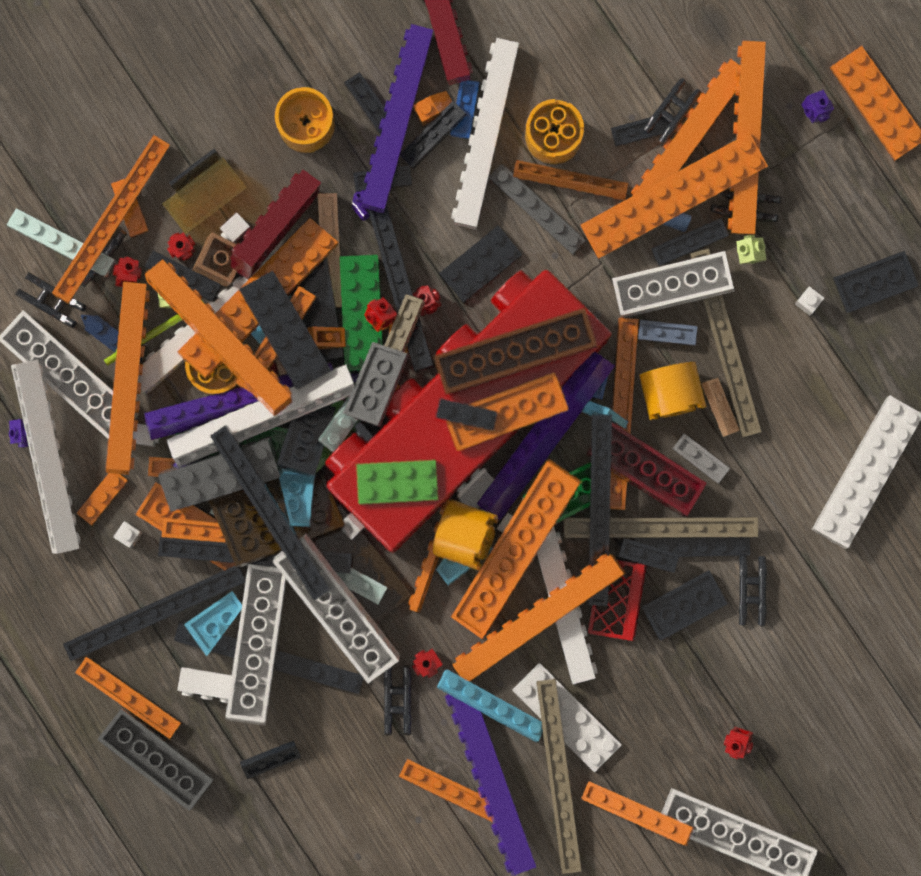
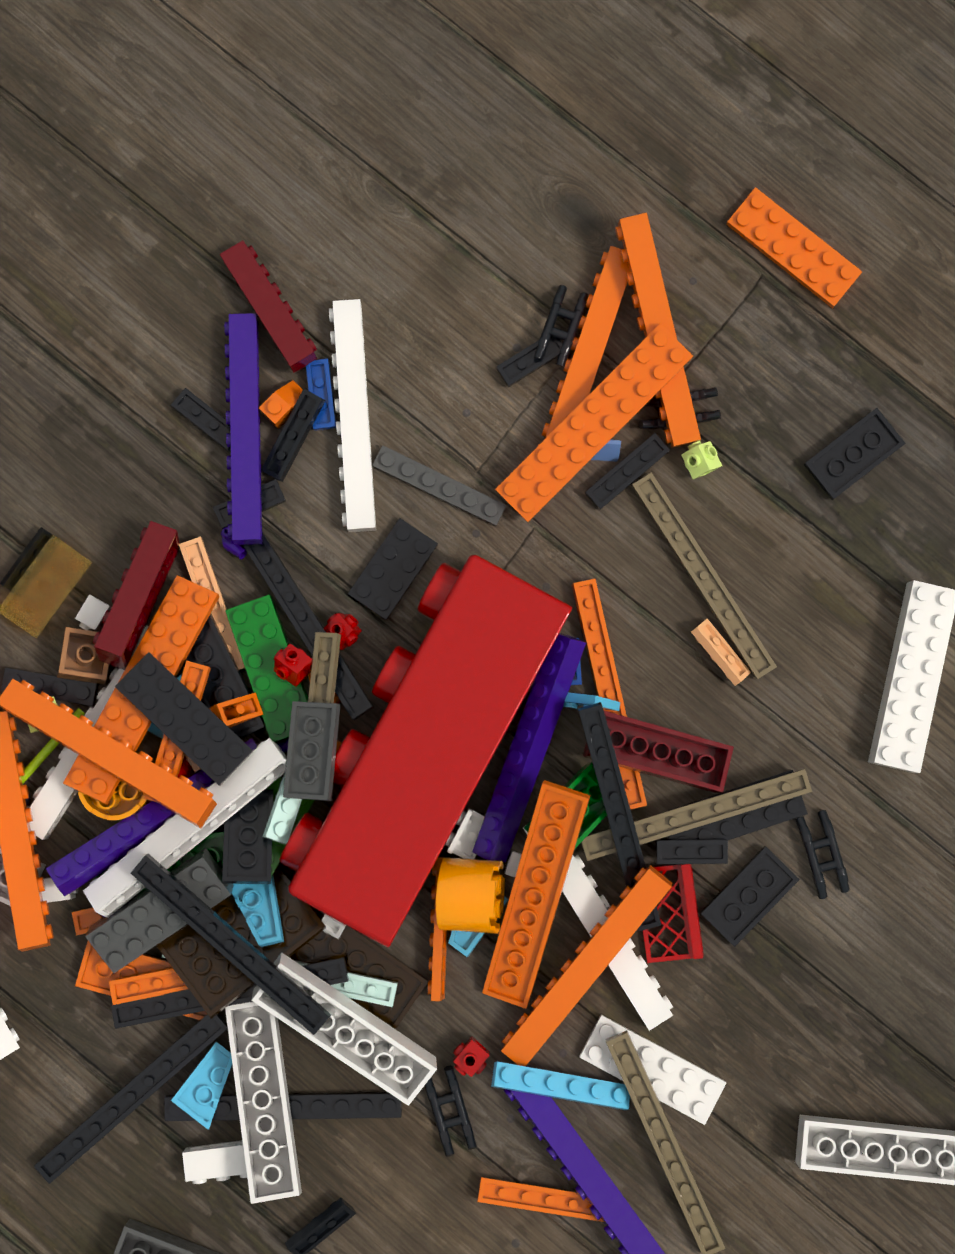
camera: 25 degrees left, 0 degrees up
(102, 497) = (30, 978): orange plate -> none
(128, 534) = (73, 1012): white brick -> none
(128, 697) = (130, 1205): orange plate -> none
(181, 253) = (44, 653): red brick -> none
(296, 107) = (122, 451): light orange brick -> none
(366, 430) = (318, 808): black plate -> none
(397, 482) = (370, 862): bright green plate -> none
(466, 414) = (429, 757): black plate -> none
(515, 351) = (465, 664): reddish brown brick -> none
(515, 410) = (475, 739): orange plate -> none
(549, 146) = (434, 408): light orange brick -> none
(570, 180) = (468, 440): dark orange plate -> none
(637, 813) = (772, 1162): orange plate -> none
(667, 332) = (633, 584): sand blue plate -> none
(672, 390) = (661, 651): light orange brick -> none
(673, 284) = (624, 526): white brick -> none
(700, 458) = (716, 718): light grey plate -> none
(738, 743) = (862, 1039): red brick -> none
(809, 301) = (786, 498): white brick -> none
(817, 107) = (727, 271): dark purple brick -> none

